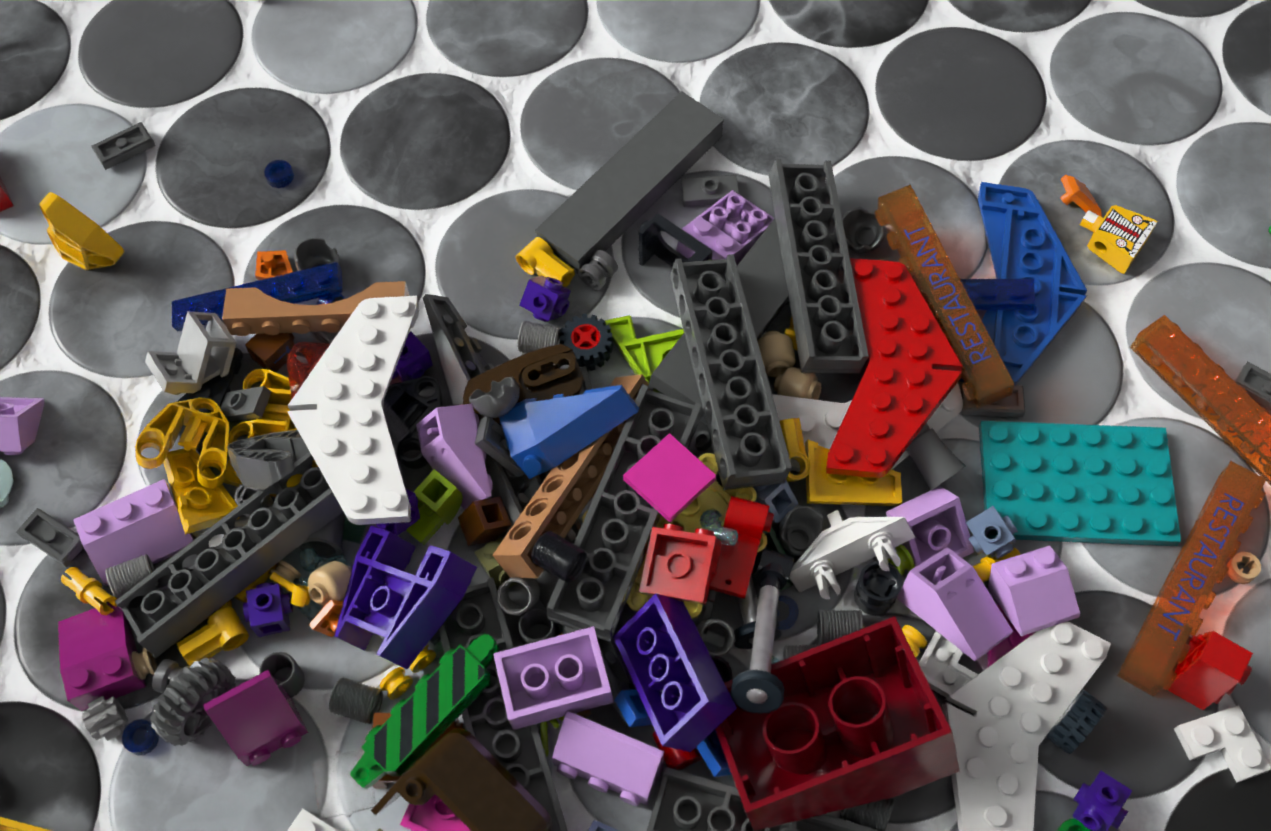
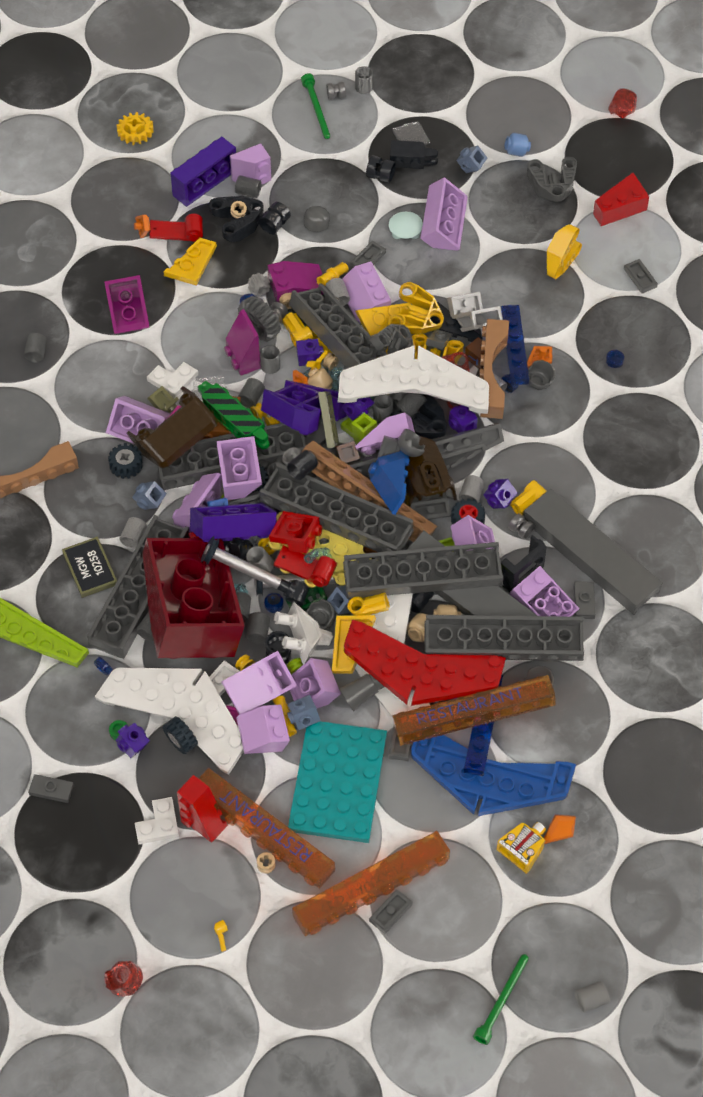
camera: 95 degrees right, 5 degrees down
(415, 545) = (328, 419): none -> olive tile
(644, 323) = (471, 532): none -> lavender slope
(669, 477) = (347, 525): dark pink tile -> none

